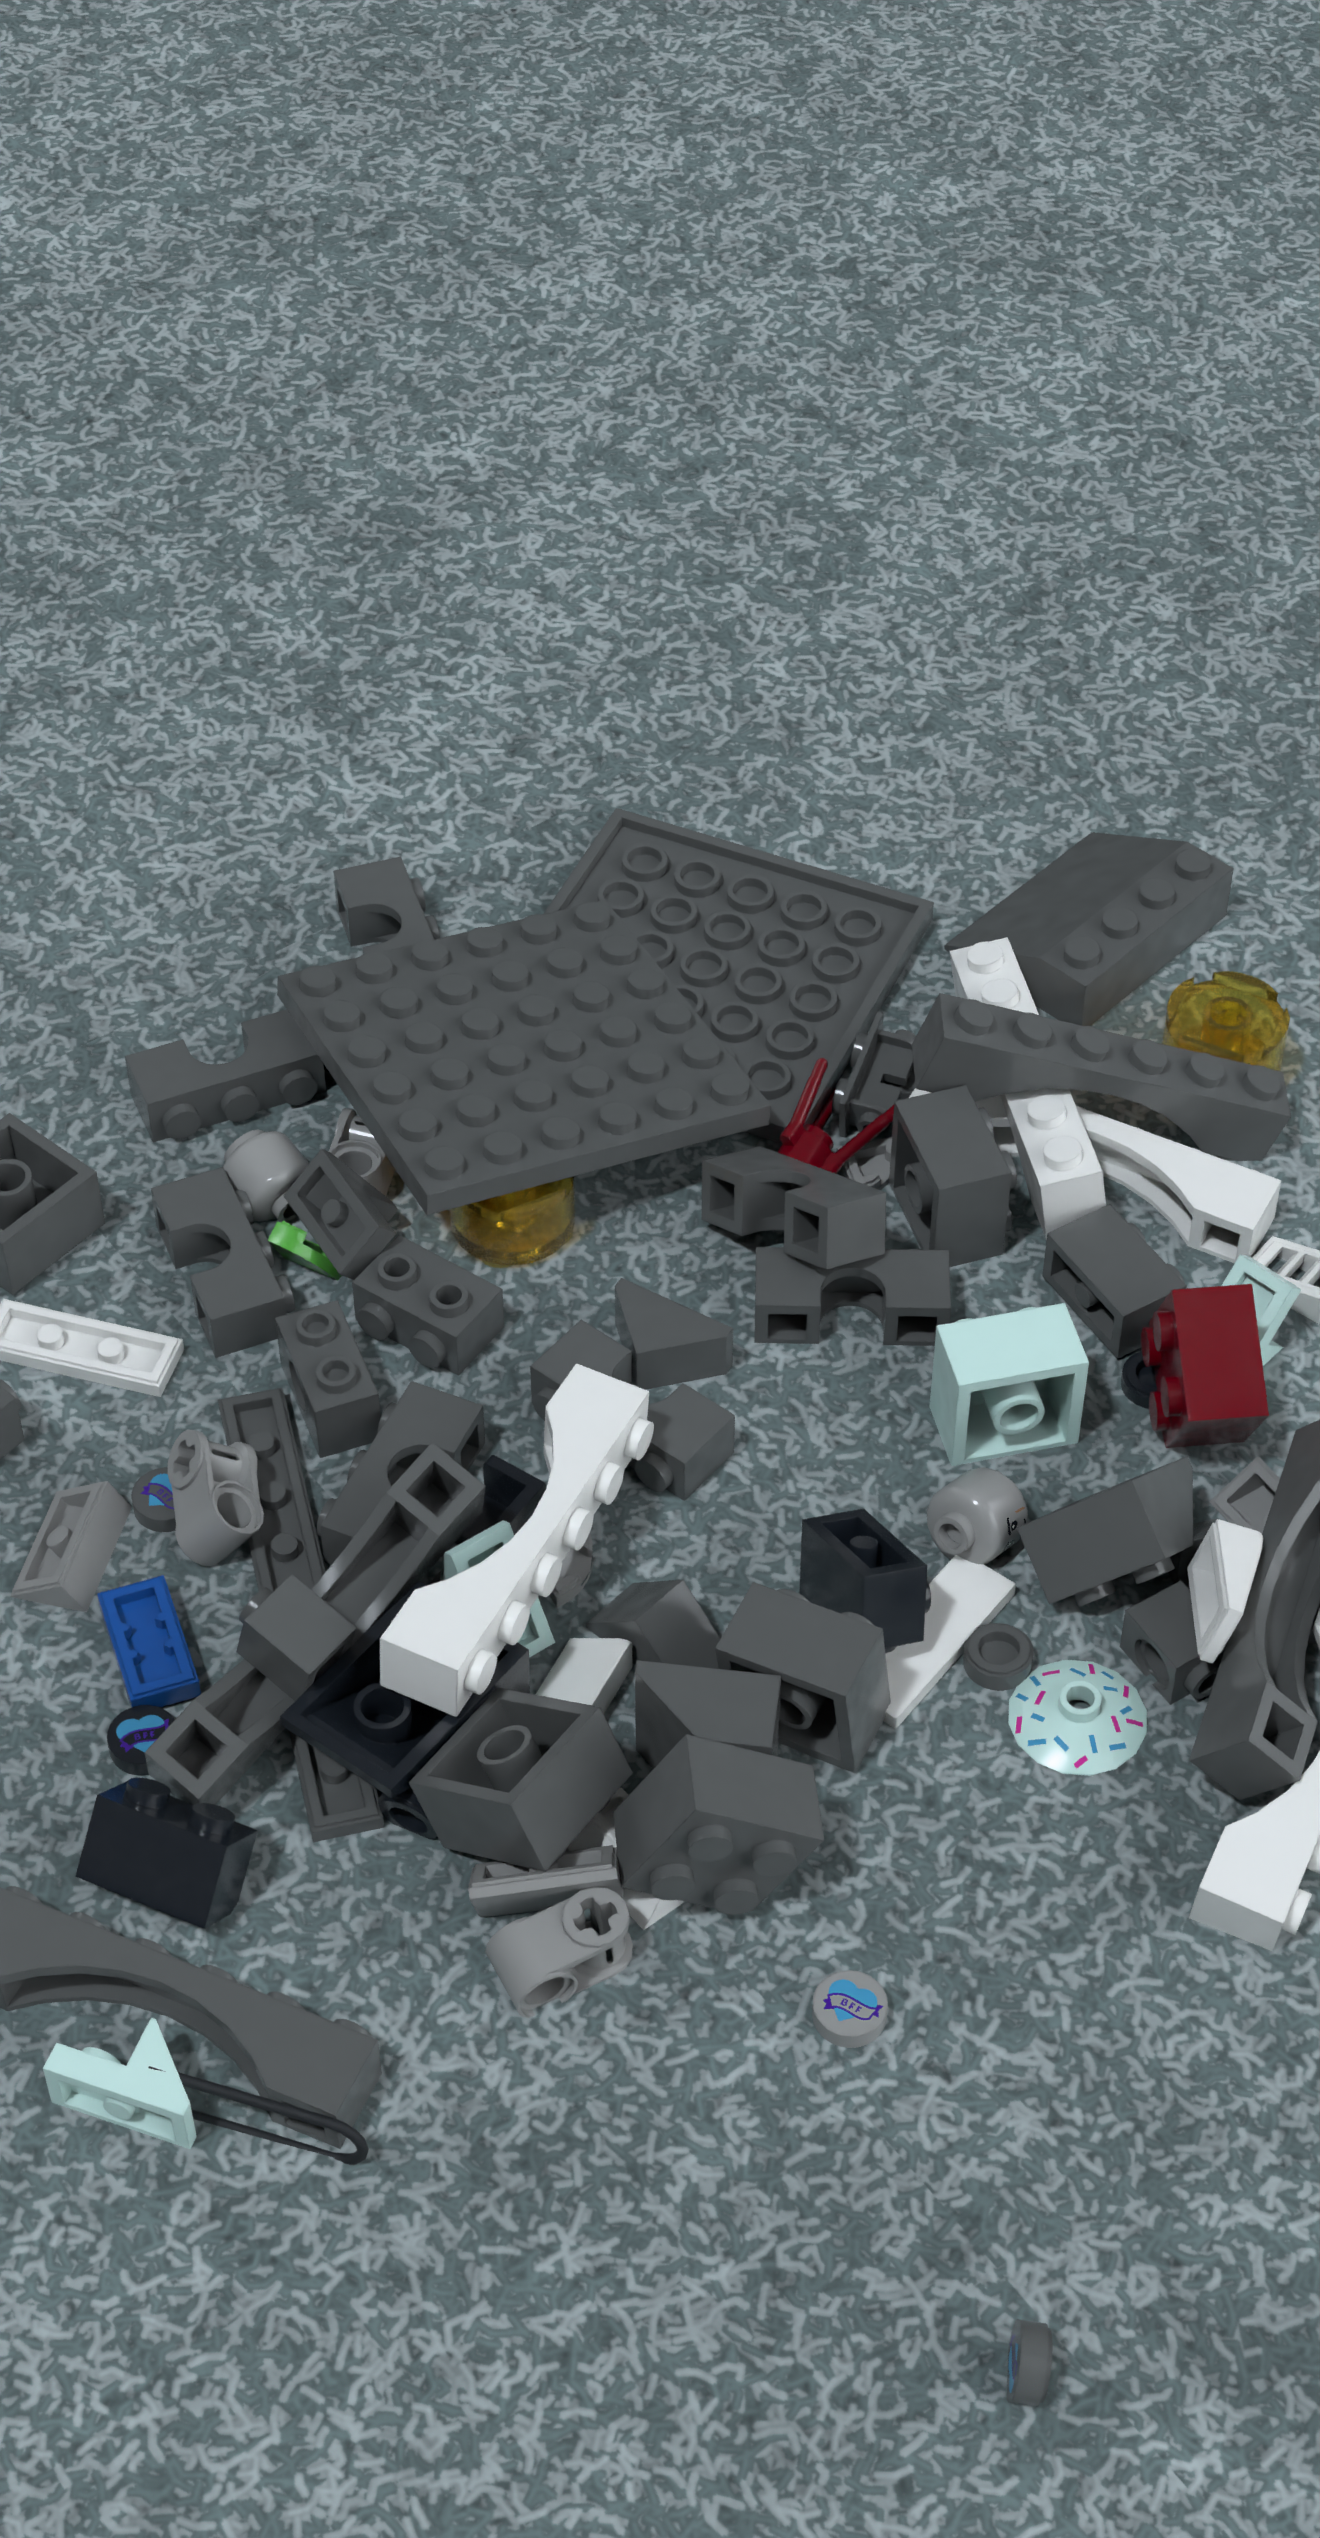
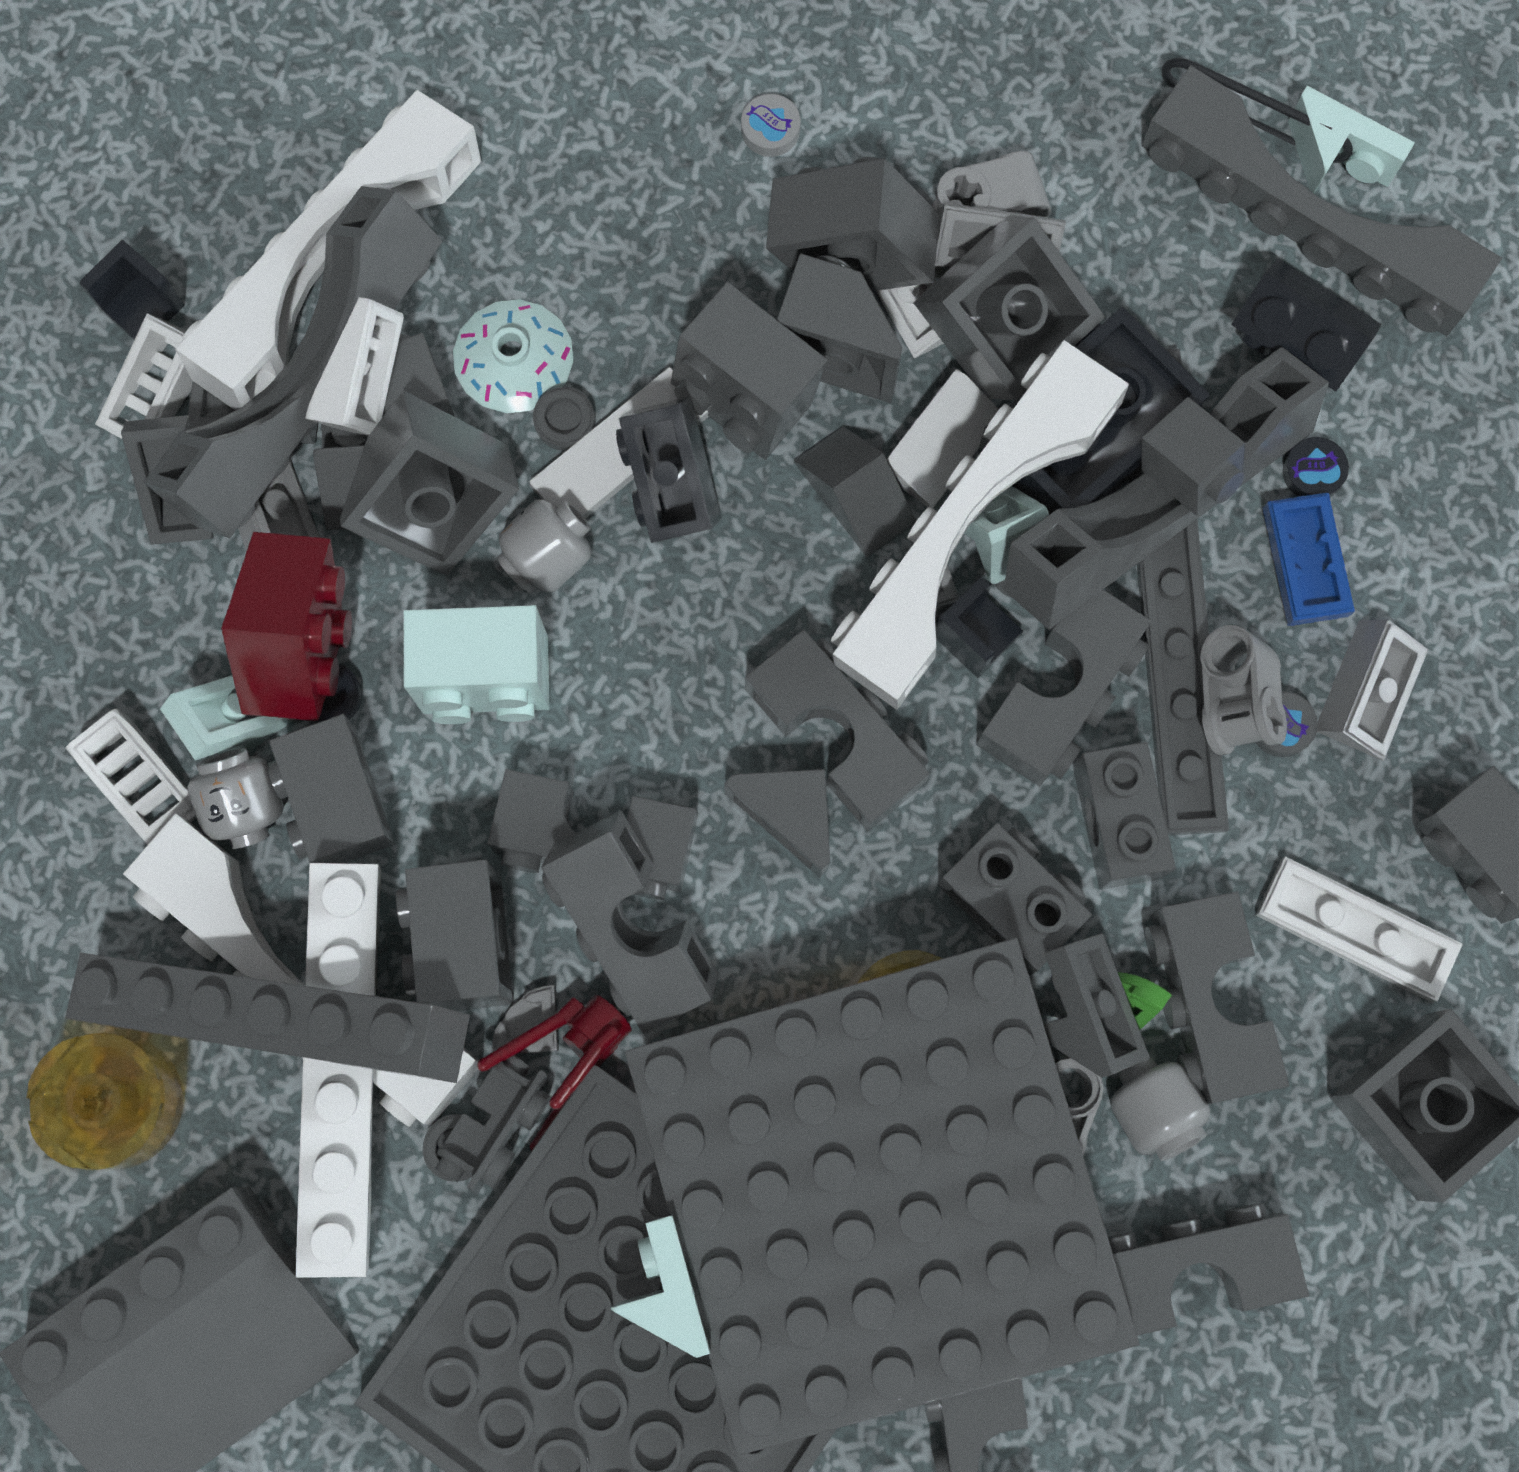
camera: 170 degrees left, 30 degrees up
(694, 966) = (673, 1310): none -> light aqua slope
(1202, 1251) = (234, 798): none -> light grey head

